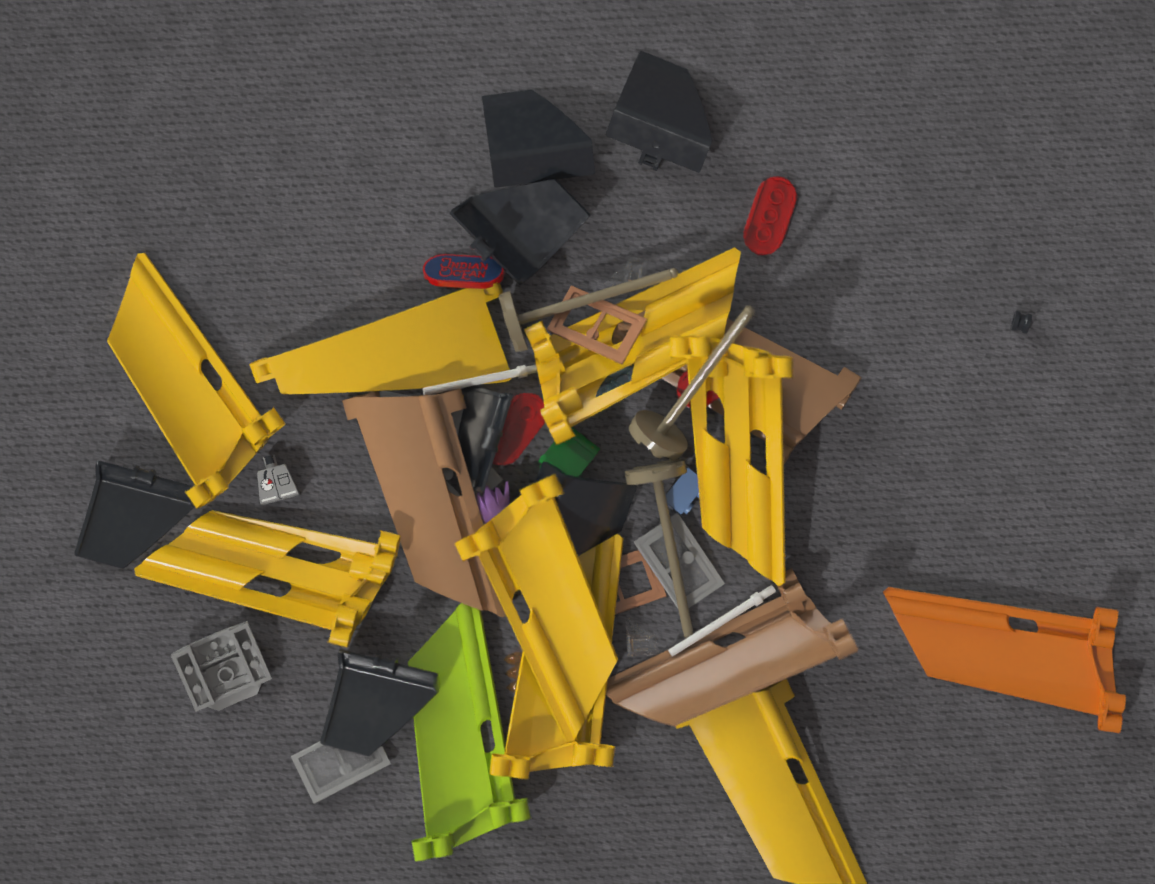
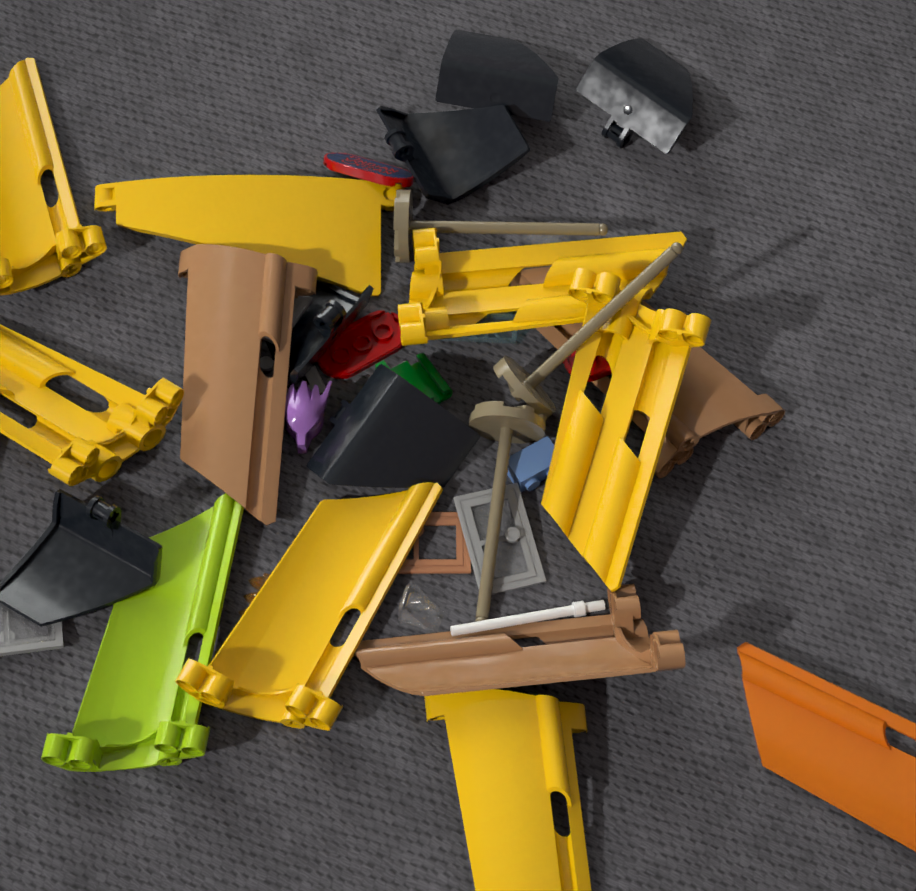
camera: 20 degrees right, 25 degrees down
(275, 482) = (68, 311): light grey torso -> none
(520, 372) = (392, 288): white bar -> none
(565, 635) = (334, 560): yellow panel -> none
(590, 340) = (486, 265): nougat door -> none
(769, 215) = (731, 227): red tile -> none

